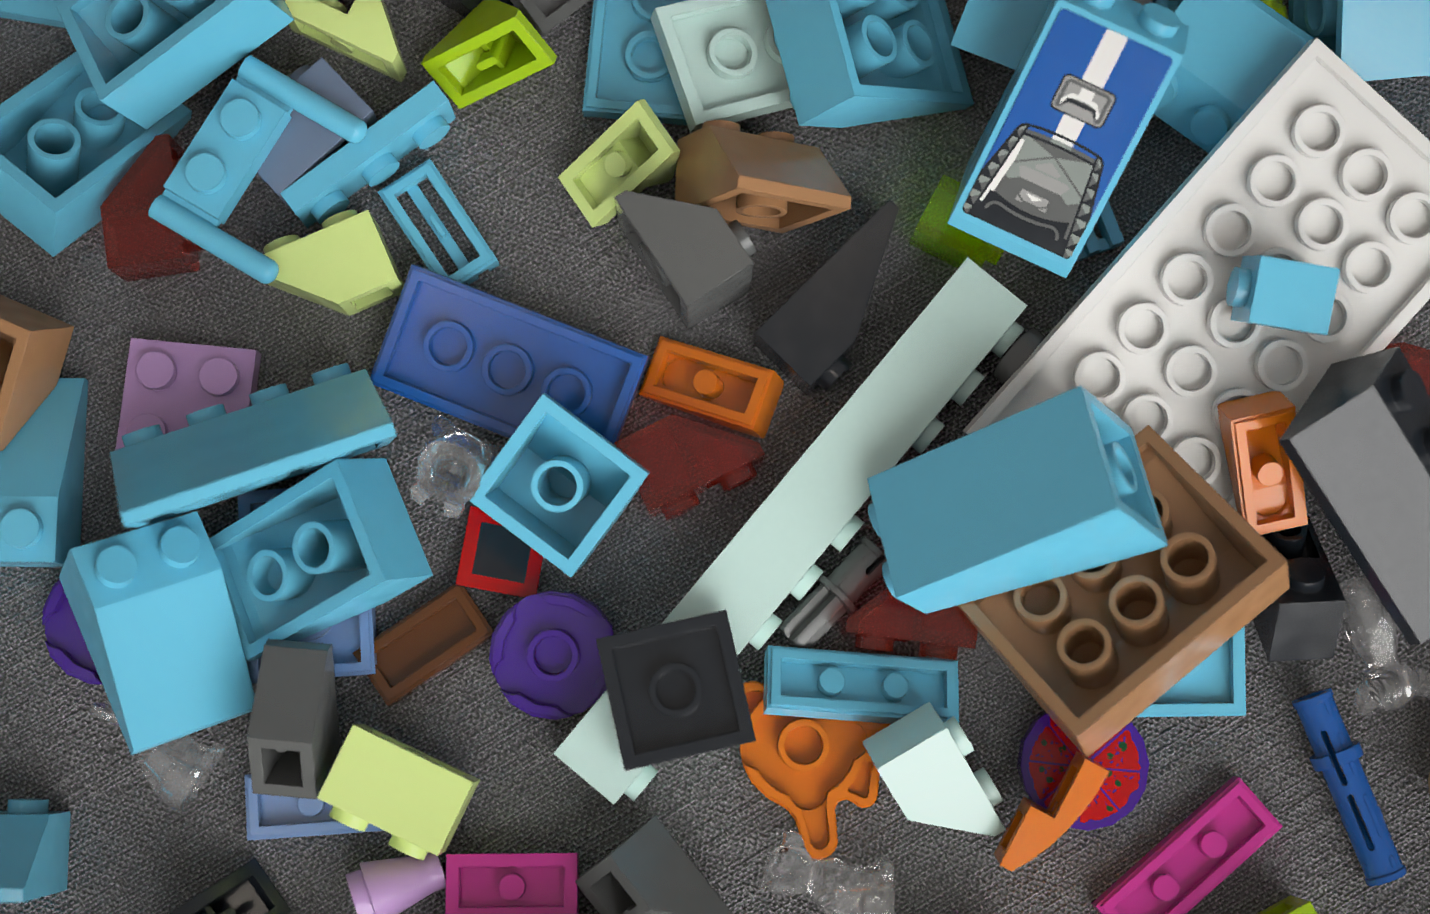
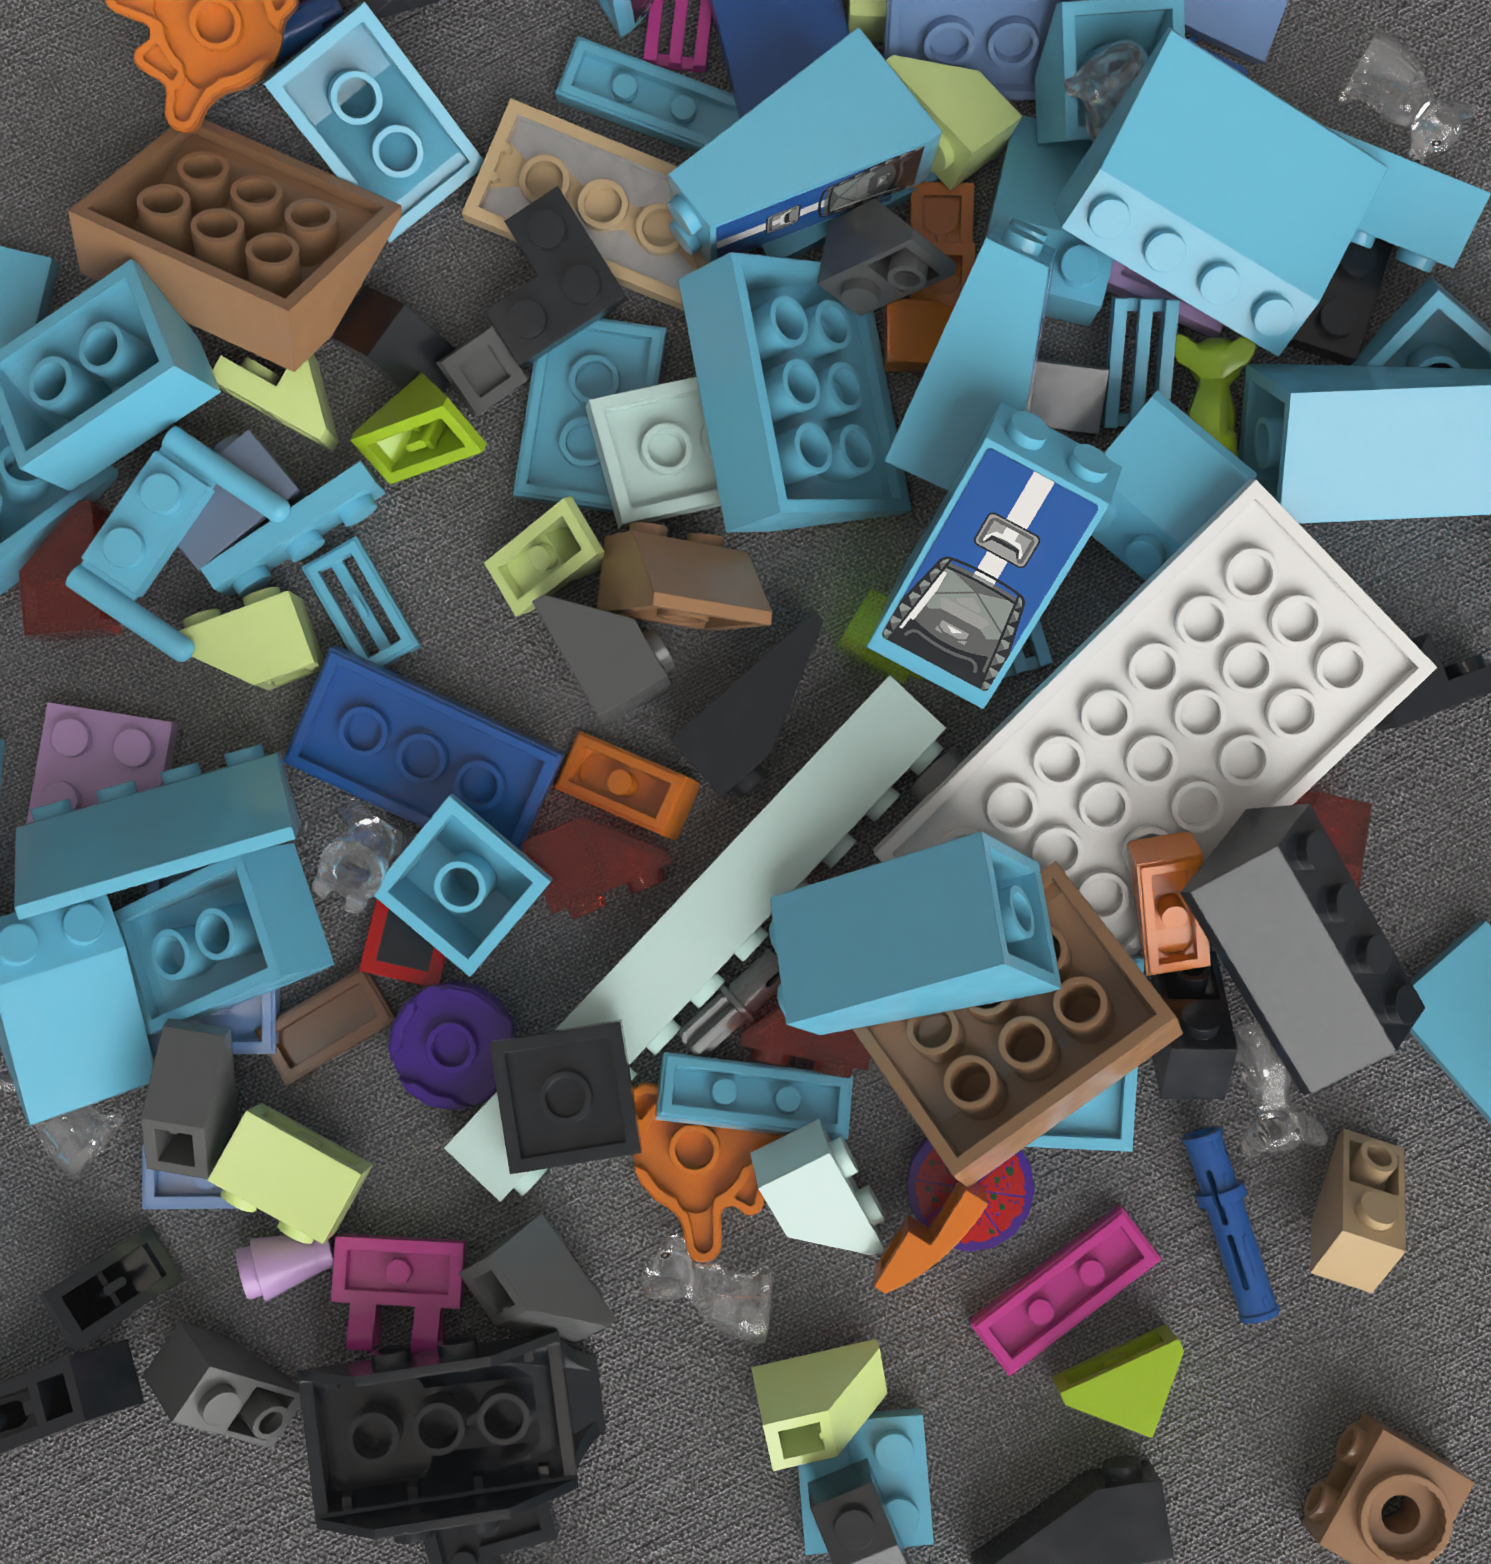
camera: 10 degrees right, 5 degrees up
(1282, 294) = (1199, 741): medium azure brick -> none

